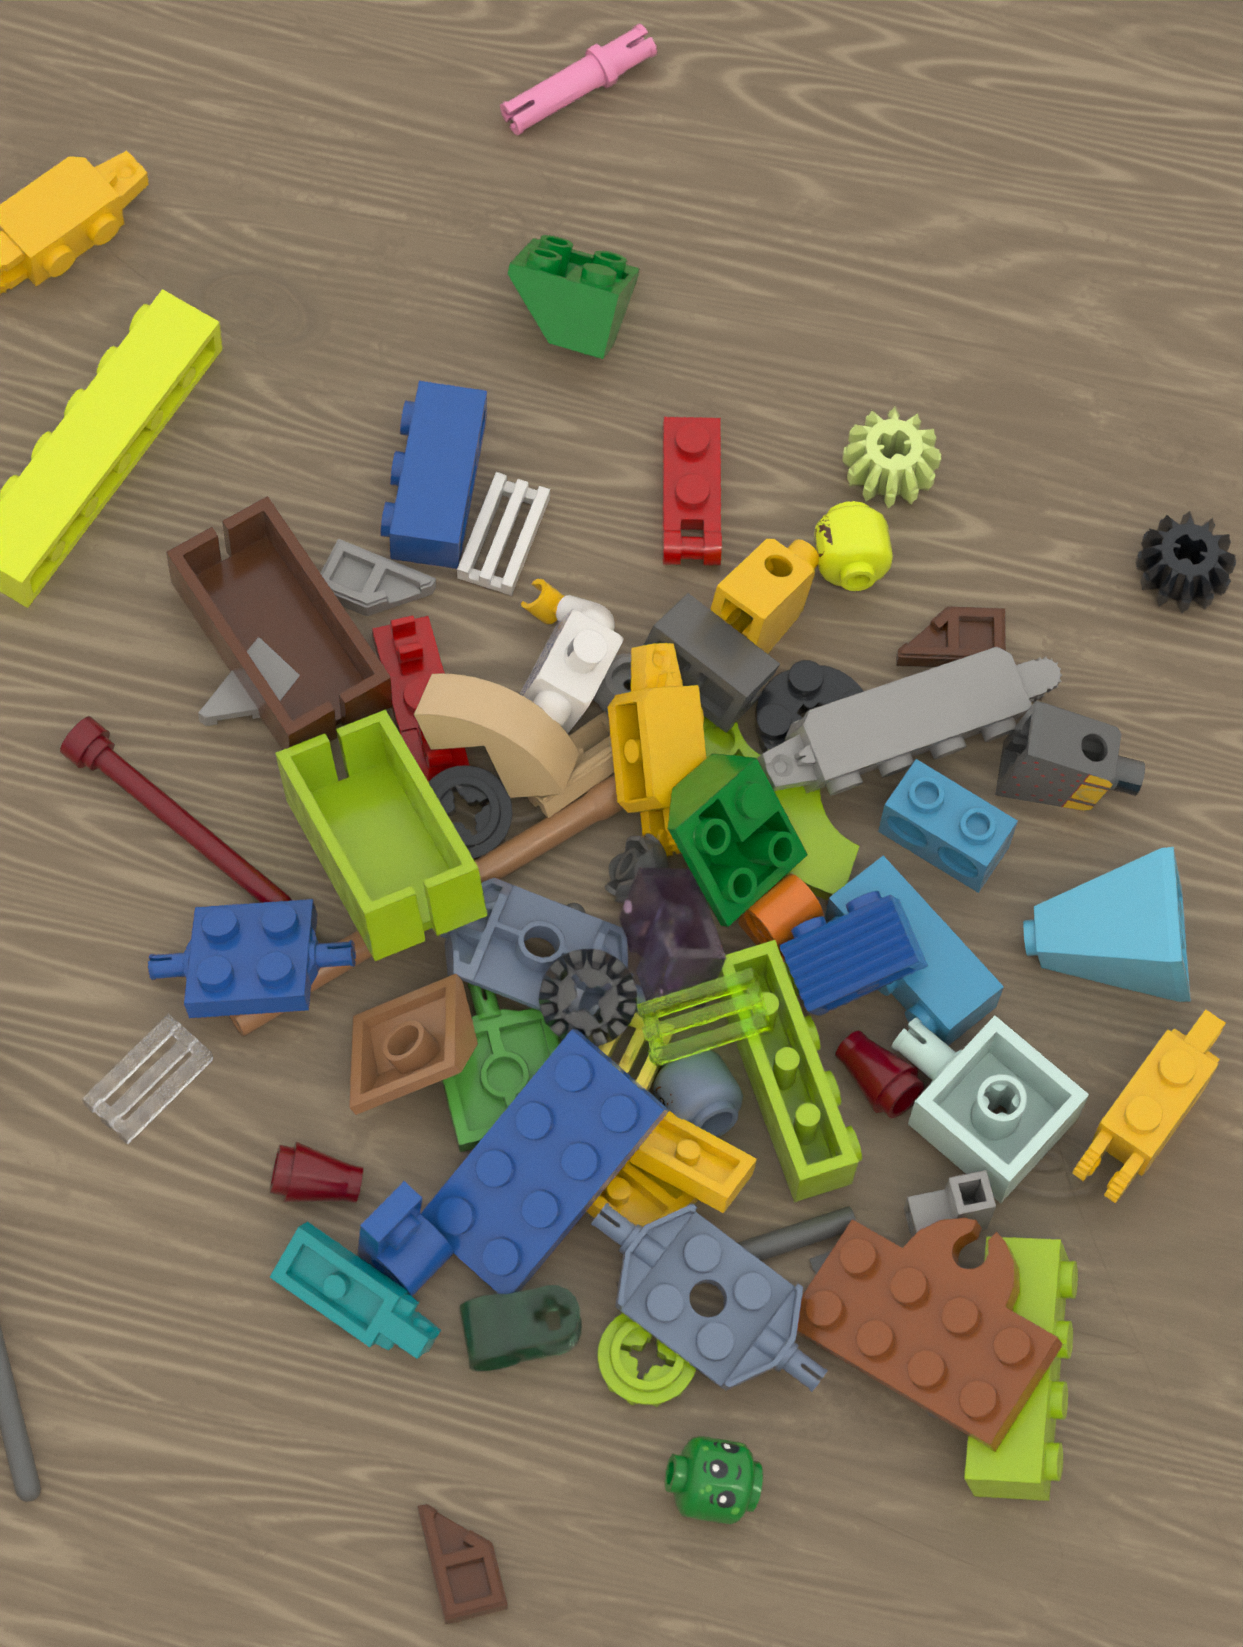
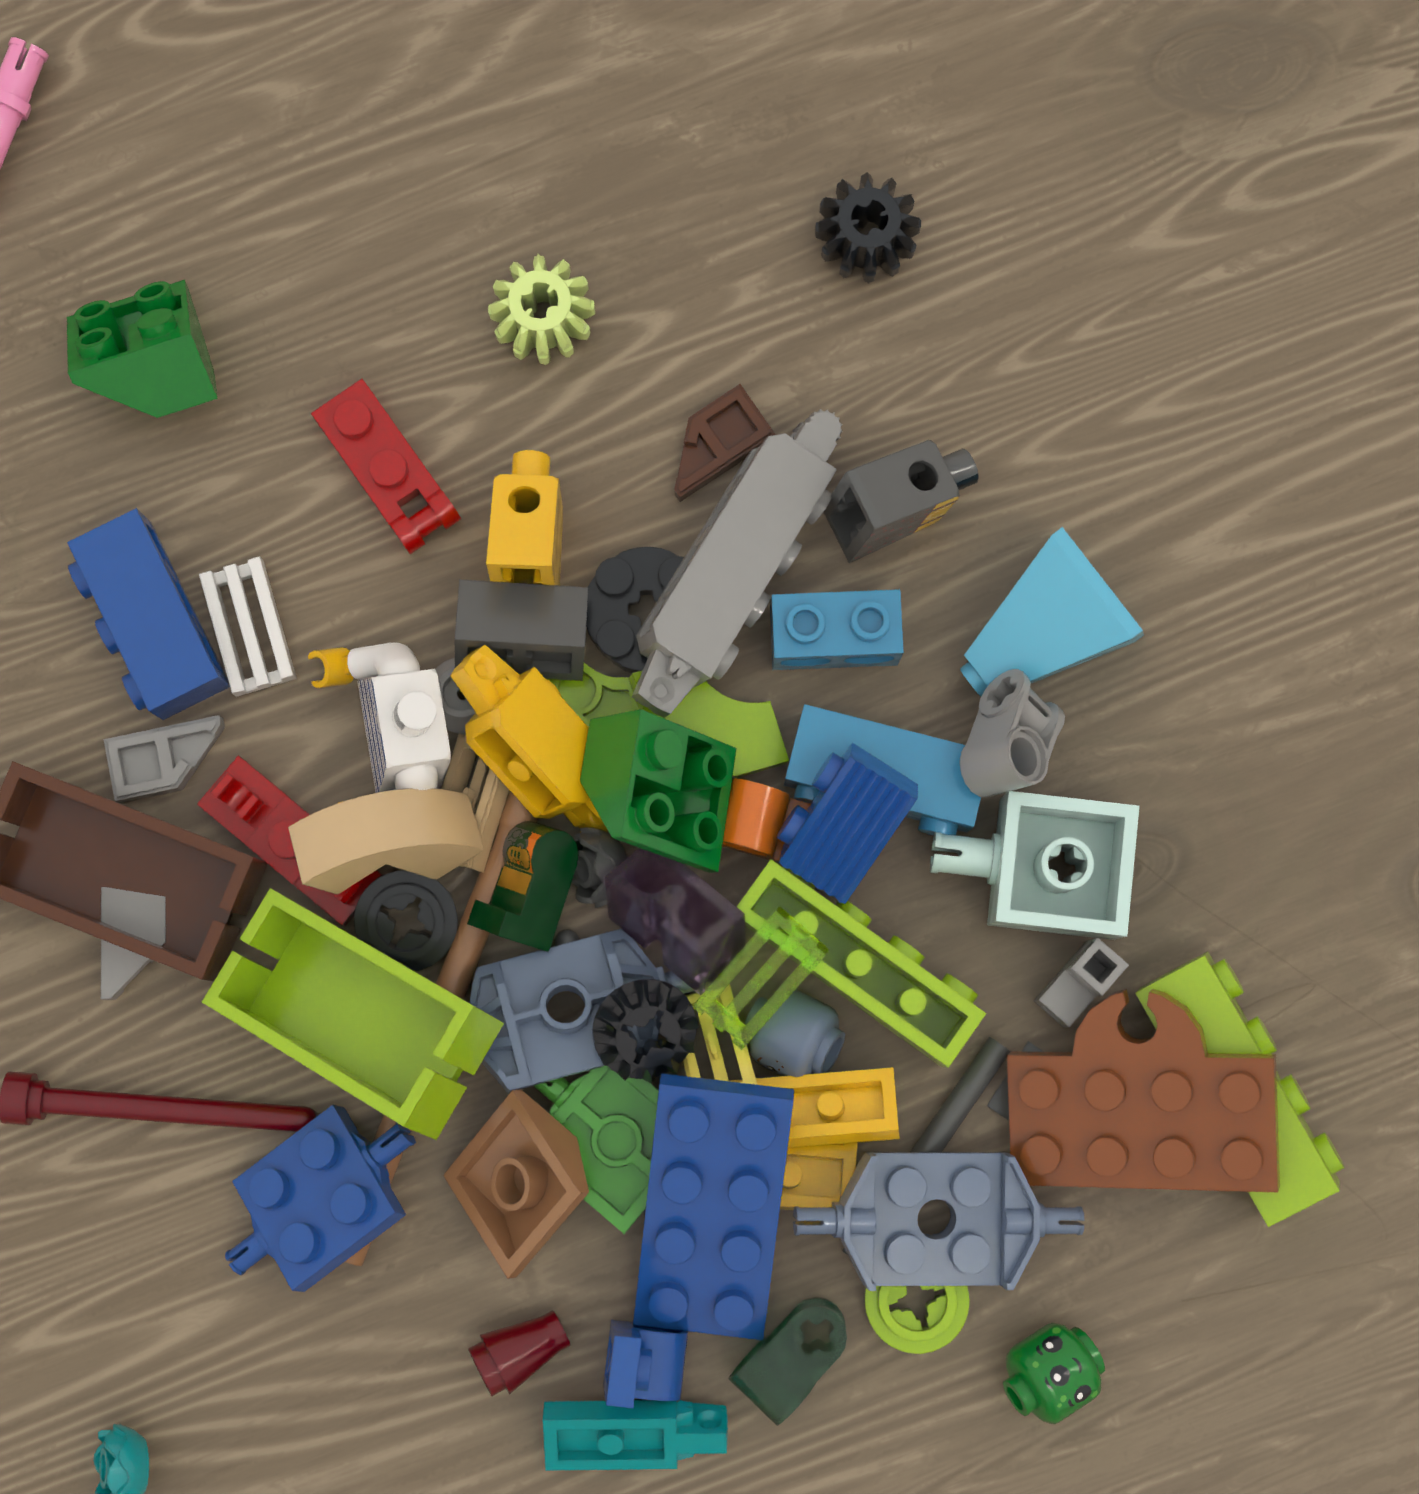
camera: 30 degrees left, 15 degrees up
(190, 1069) = (314, 1308): clear tile -> none
(577, 849) = (530, 886): none -> dark green leg
(853, 546) = (568, 421): neon yellow head -> none
(881, 1076) = (935, 901): dark red cone -> none
(1022, 978) = (1010, 737): none -> light grey piece
(1154, 1103) = (1188, 762): yellow hinge -> none

